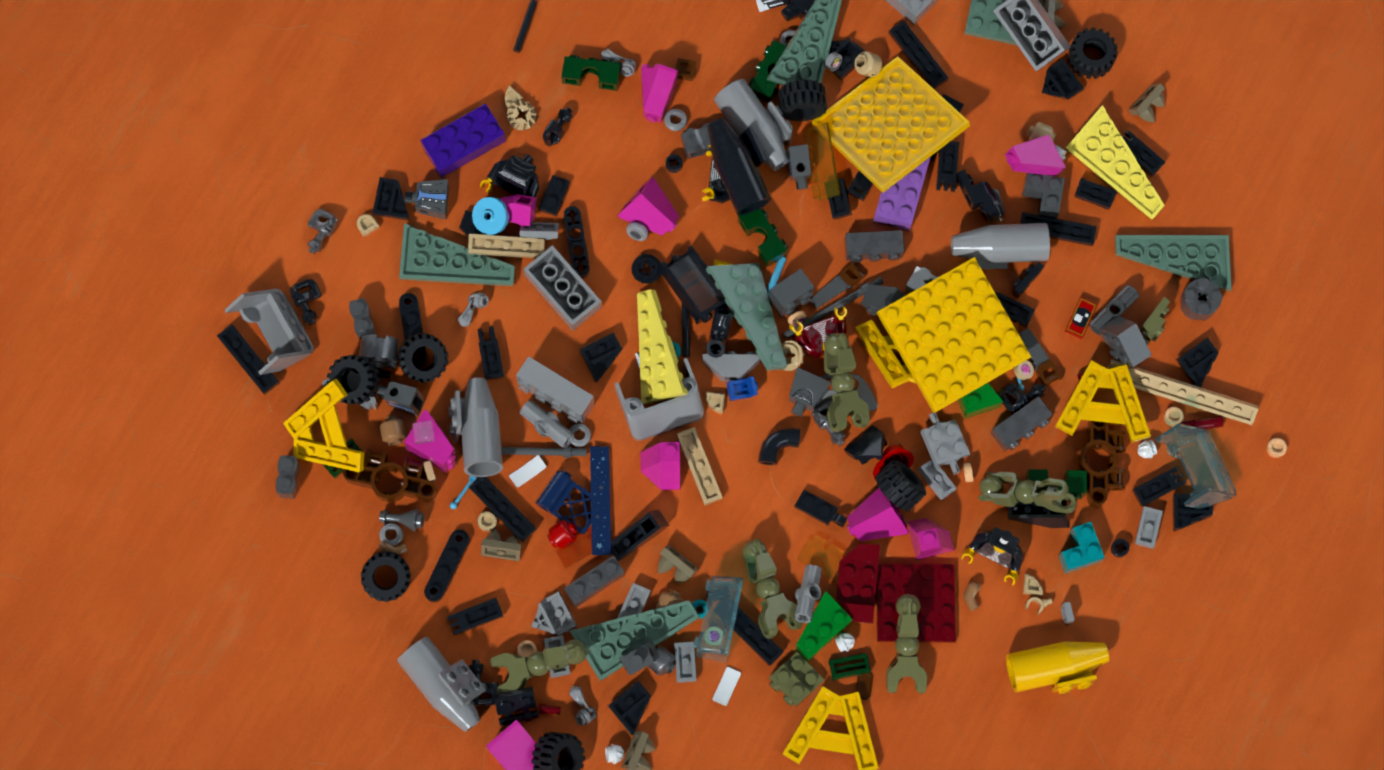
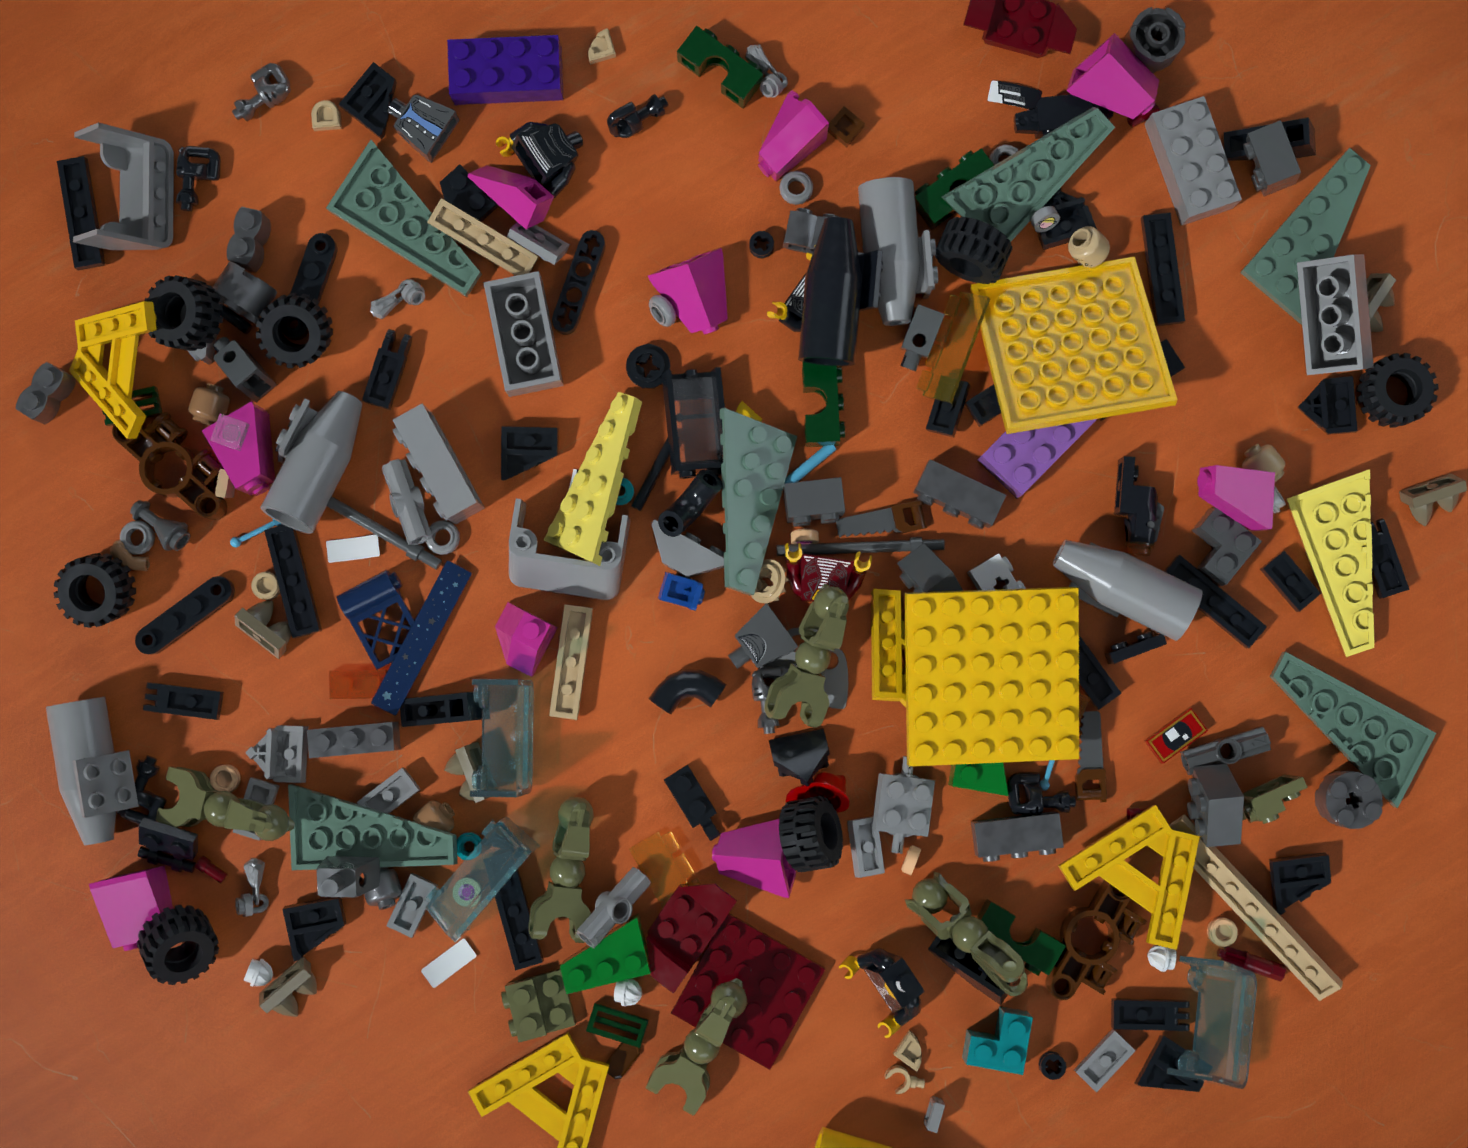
camera: 35 degrees right, 10 degrees up
(498, 213) = (481, 188): medium azure plate -> none
(520, 123) = (611, 83): tan gear -> none
(554, 195) = (584, 205): black plate -> none
(562, 534) = (346, 656): red head -> none
(684, 526) = (505, 737): none -> clear light blue windscreen
(715, 401) = (640, 588): tan tile -> none
(929, 538) = (812, 919): dark pink slope -> none
(947, 166) = (1115, 441): black hinge -> none
(970, 593) = (824, 1018): medium nougat arm -> none
(1024, 370) = (1061, 768): tile -> none
(1276, 447) = (1334, 1047): light nougat tile -> none

